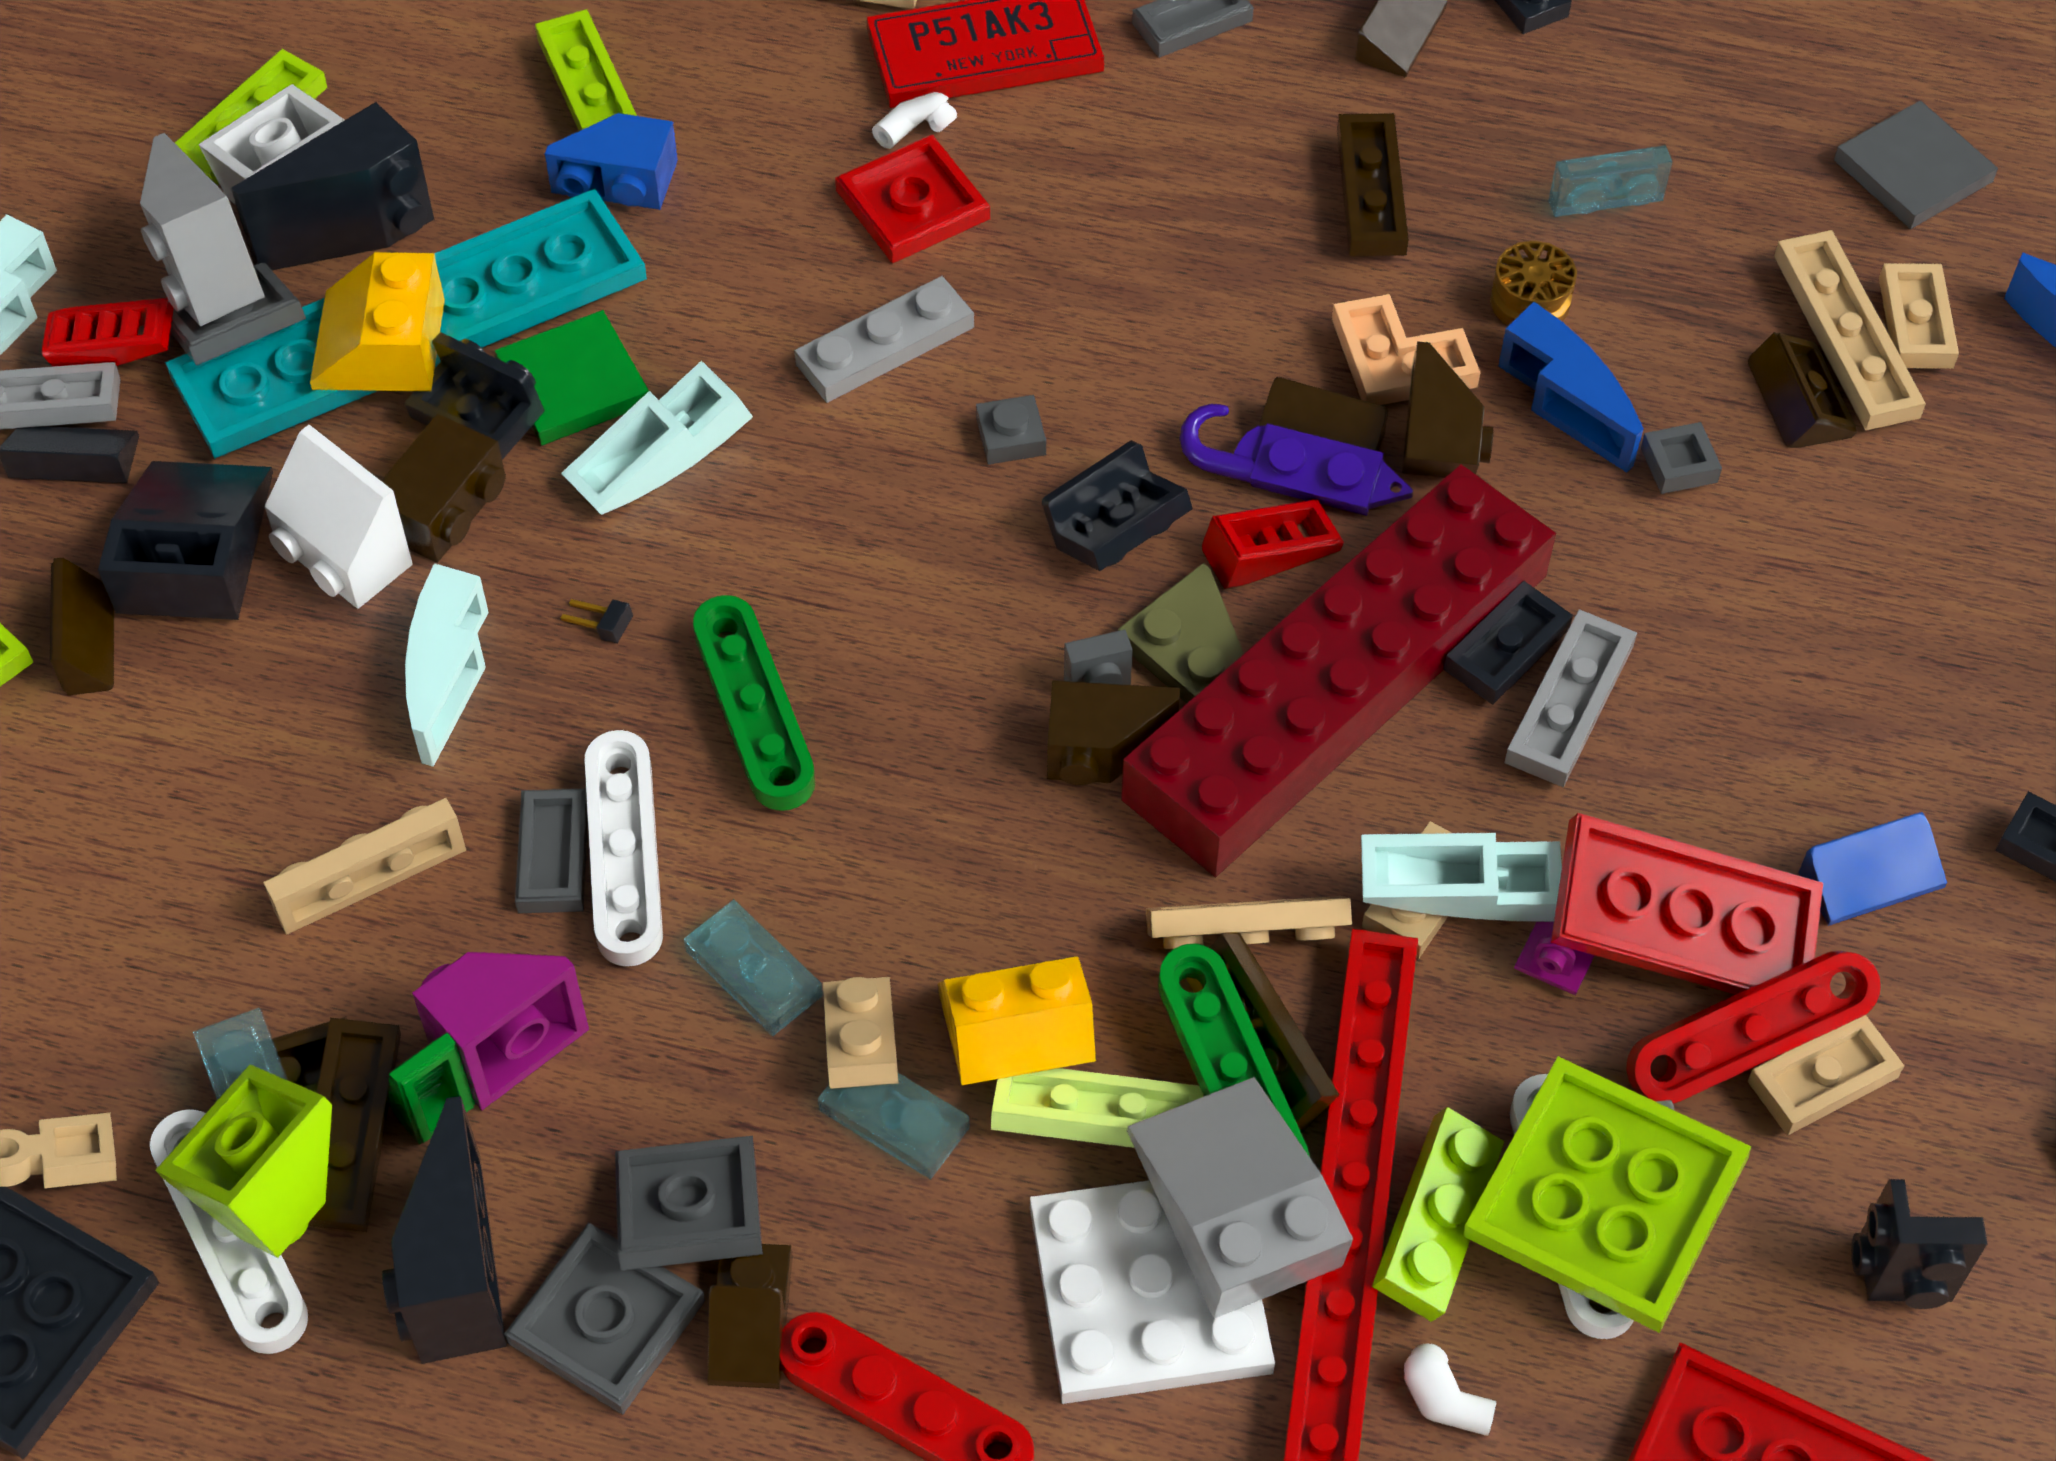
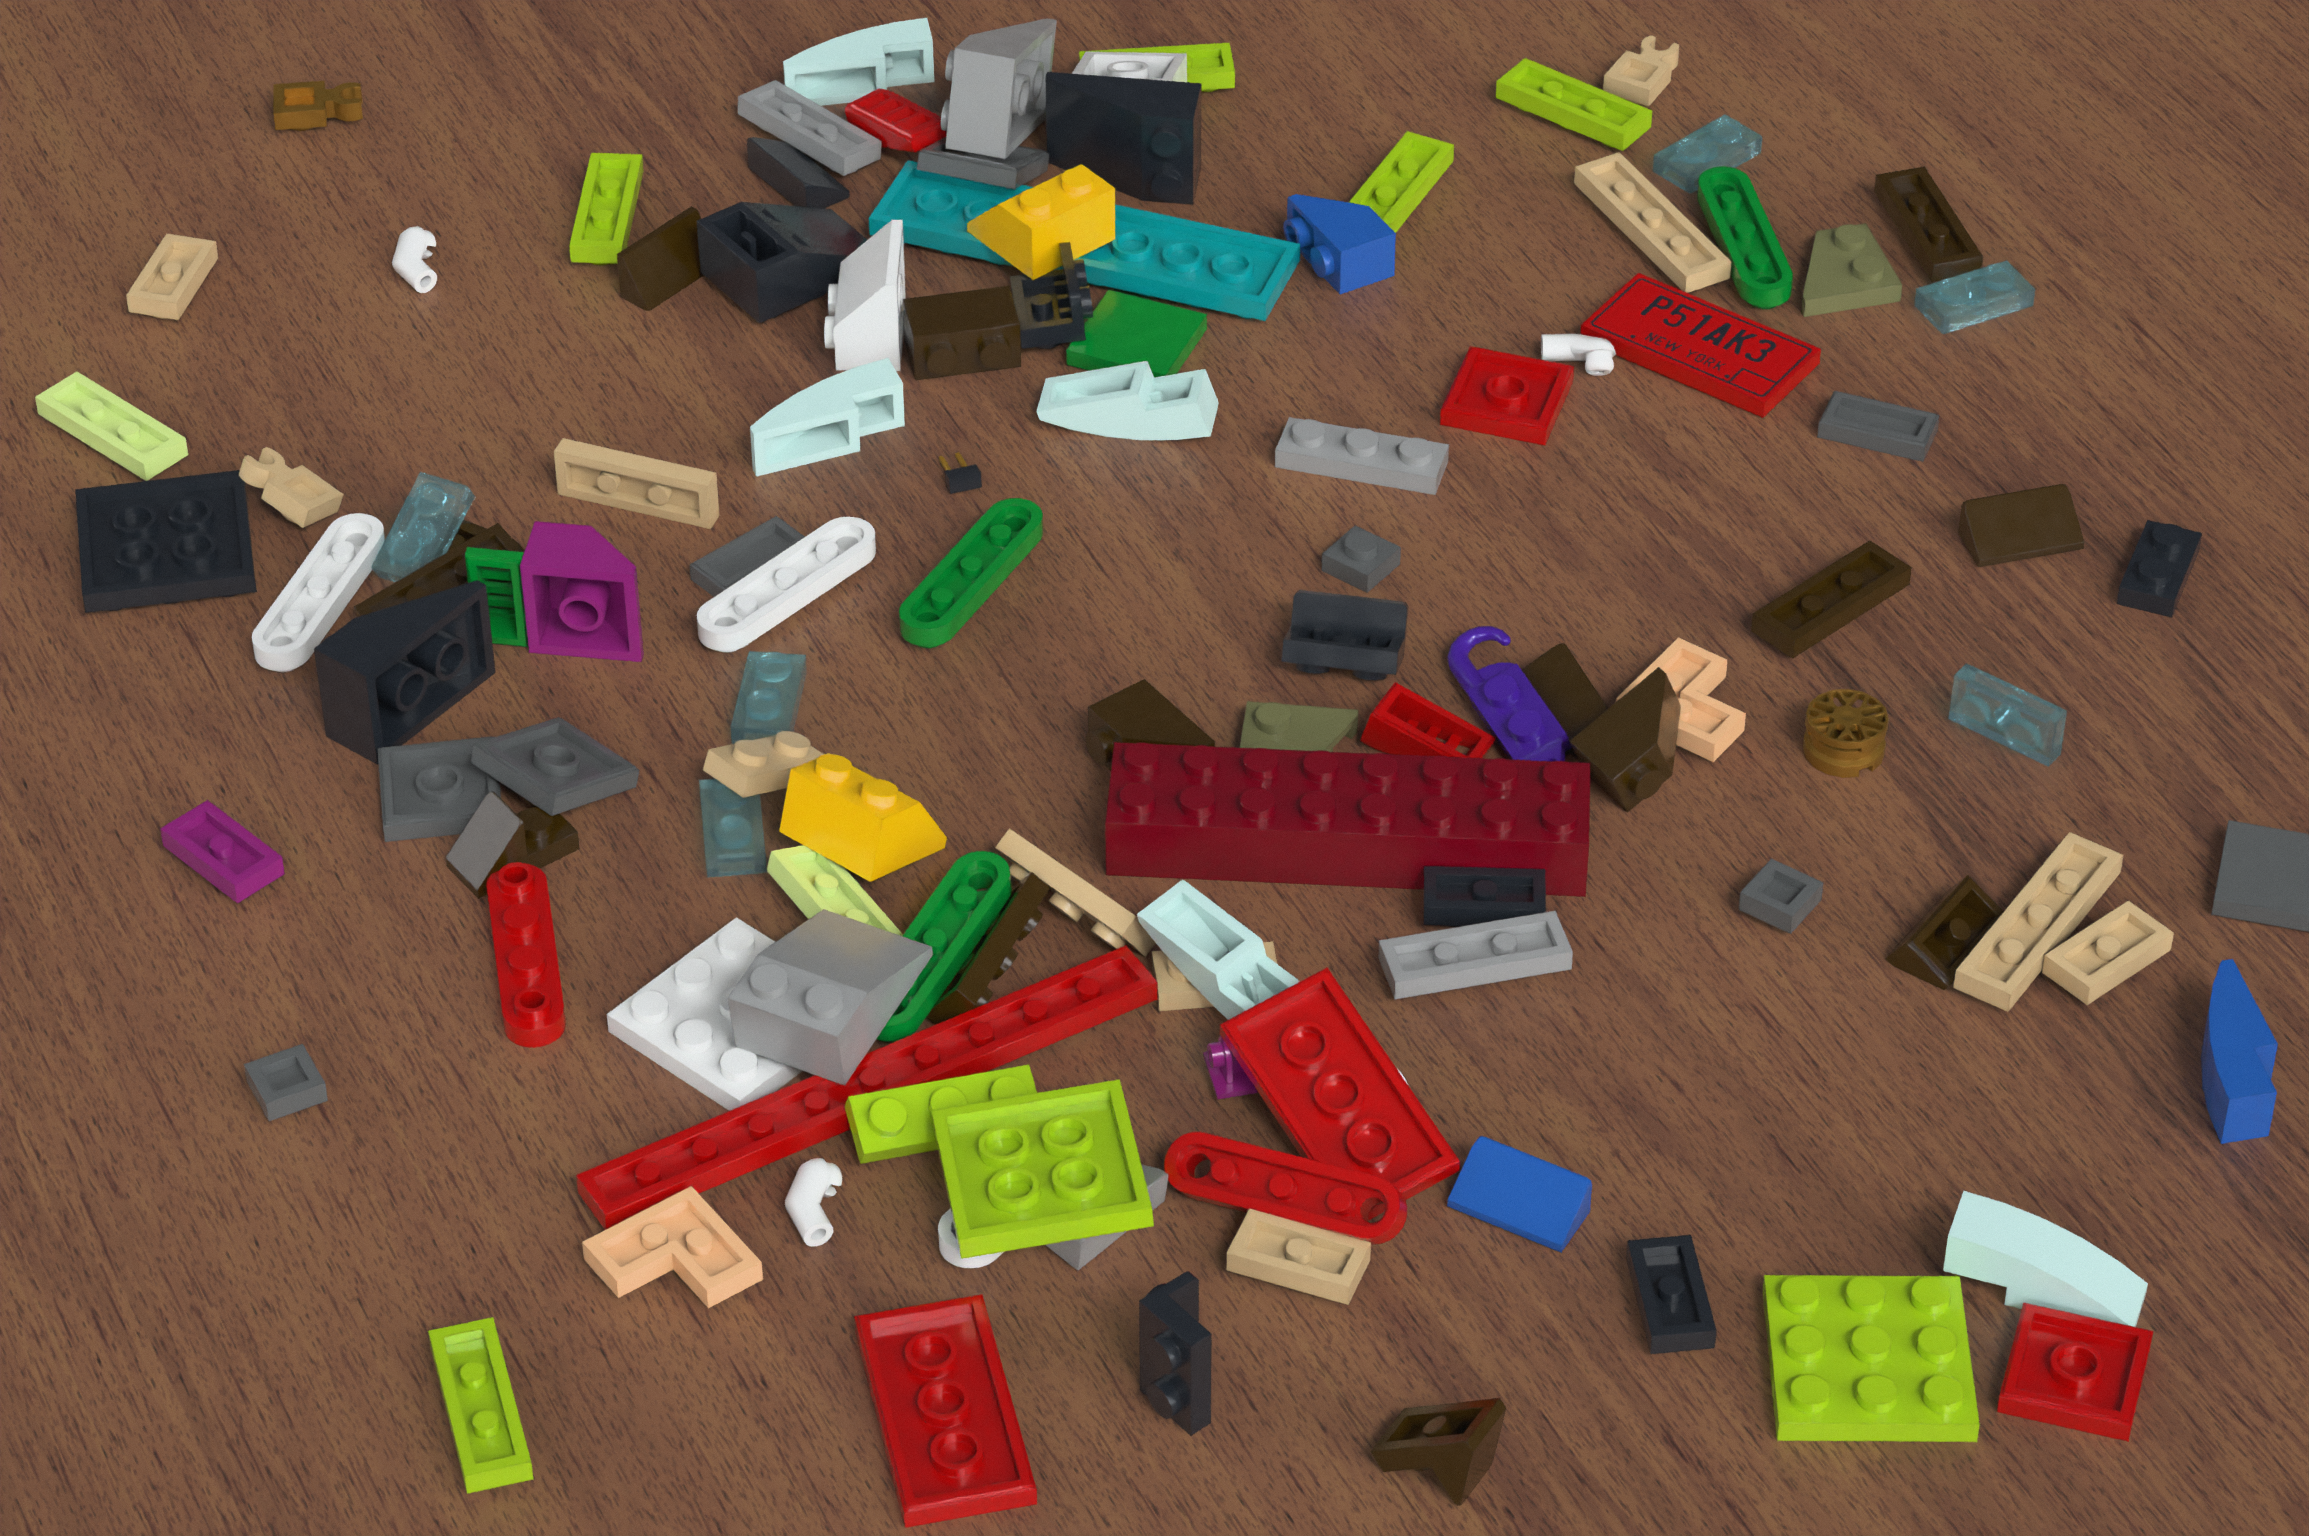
camera: 50 degrees right, 15 degrees down
(257, 1159) = (354, 553): lime slope -> none
(1099, 659) = (1203, 702): dark grey plate -> none
(1571, 385) = (1770, 795): blue slope -> none

